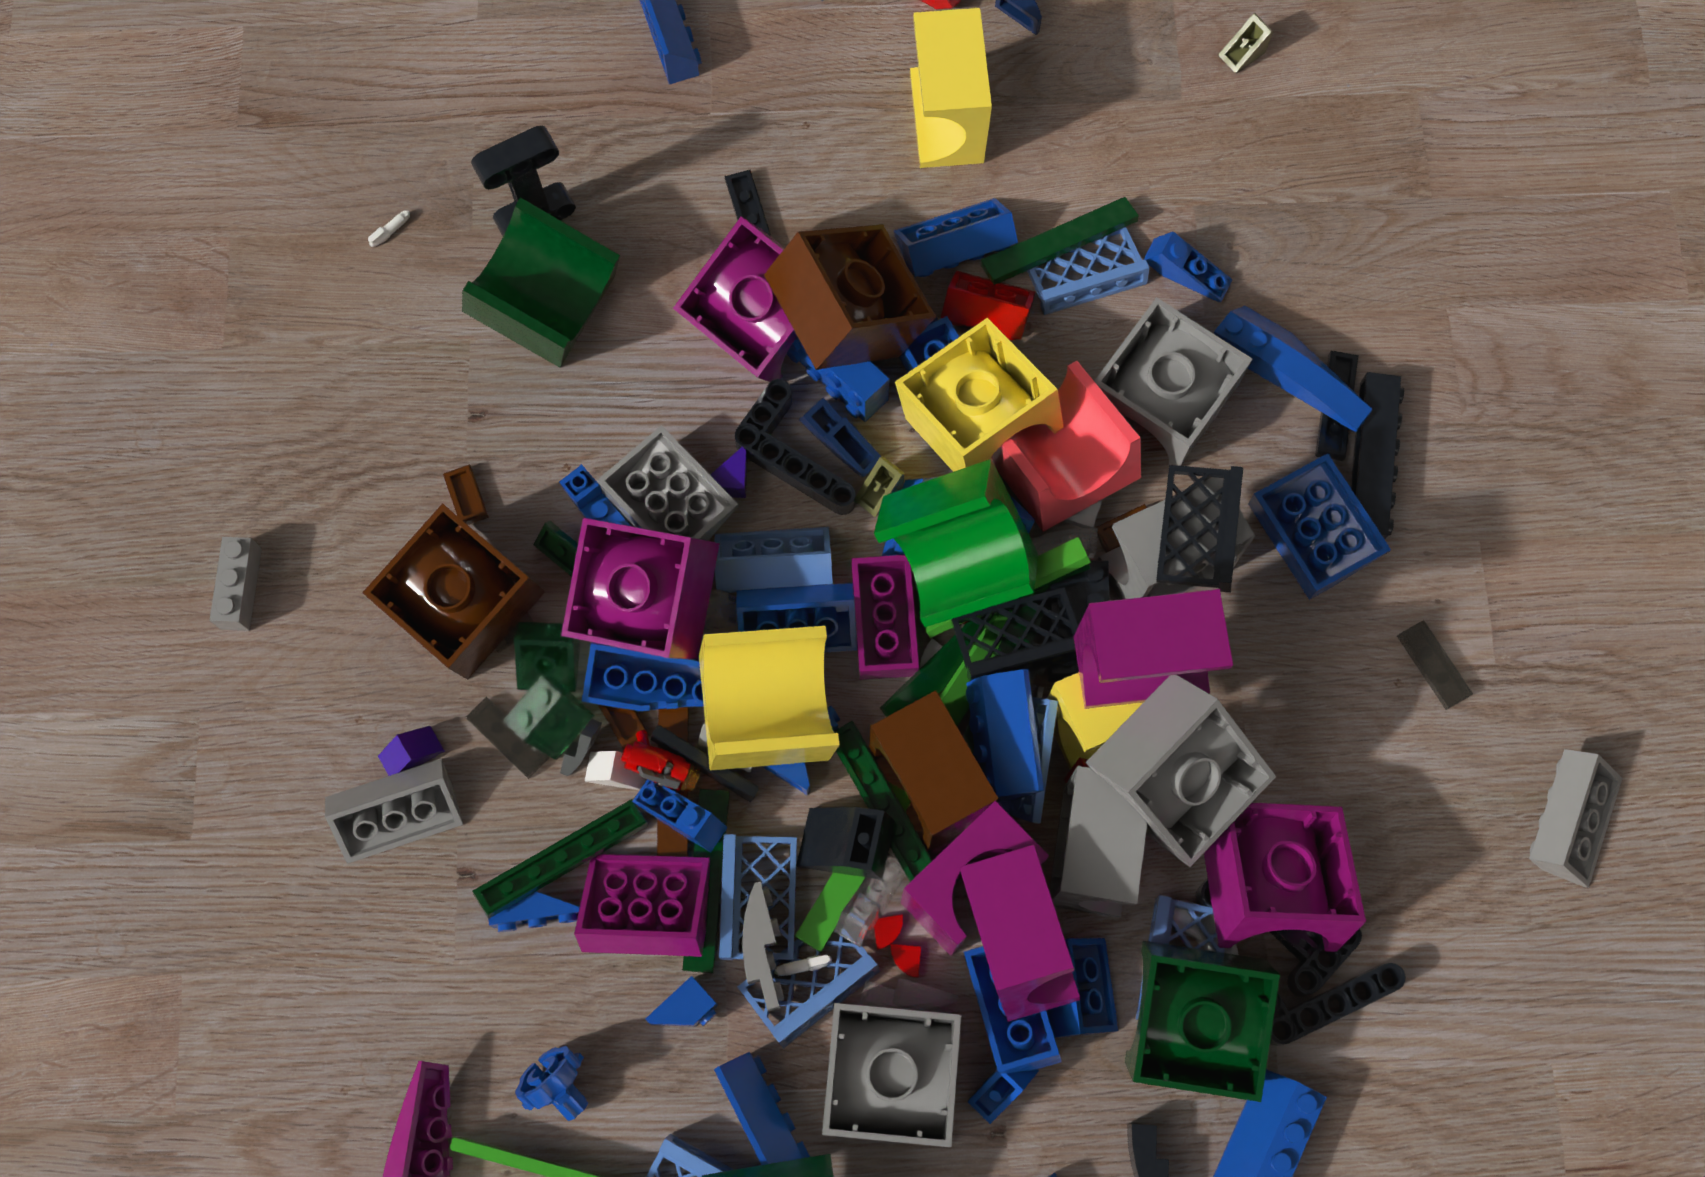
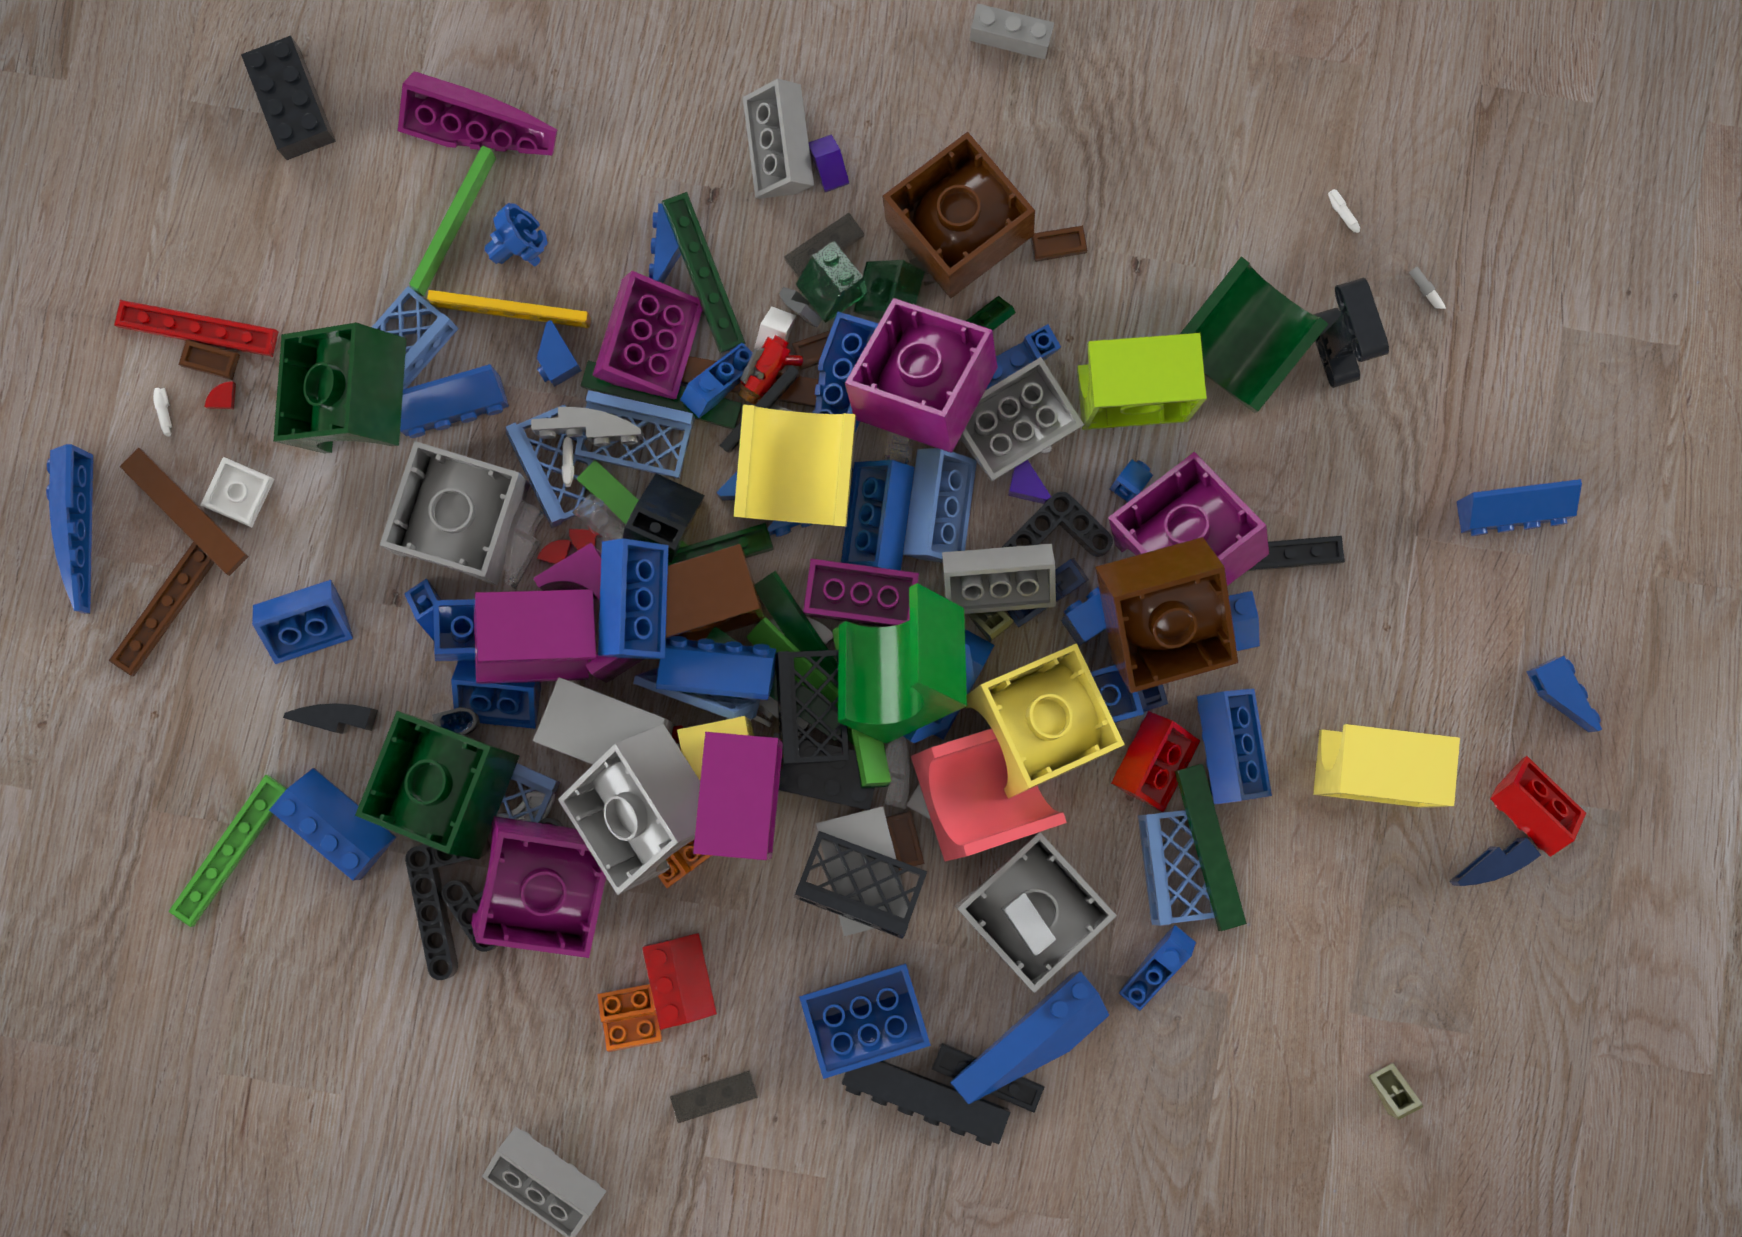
camera: 100 degrees right, 10 degrees up
(458, 141) = (1427, 288): none -> light grey piece
(607, 371) = (1141, 381): none -> lime piece
(639, 1076) = (509, 309): none -> yellow tile
(709, 374) = (1131, 480): none -> blue slope
(839, 475) = (1000, 578): none -> light grey slope
(960, 824) = (633, 599): none -> blue slope
(1121, 1023) = (459, 720): none -> rock
(1188, 374) = (1028, 924): none -> slope
(1330, 723) = (679, 981): none -> red slope
(1381, 767) = (629, 1018): none -> orange slope

